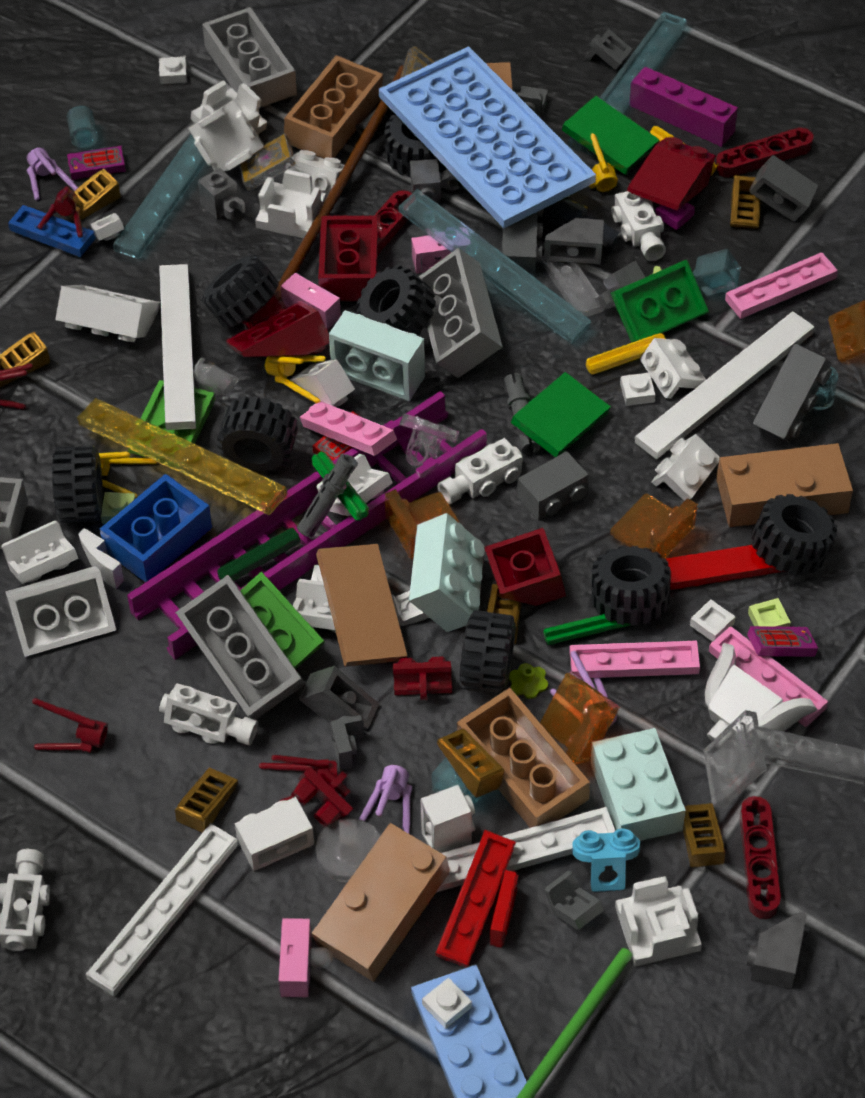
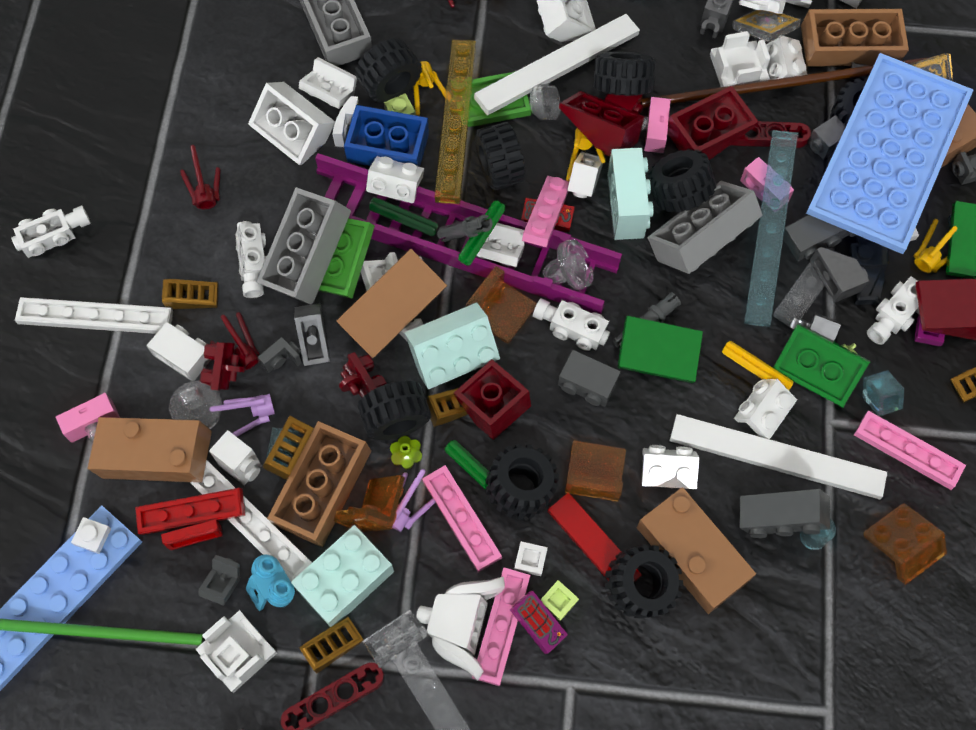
camera: 60 degrees right, 15 degrees up
(214, 538) = (394, 179): none -> white bracket
(637, 389) = (728, 393): white plate -> none

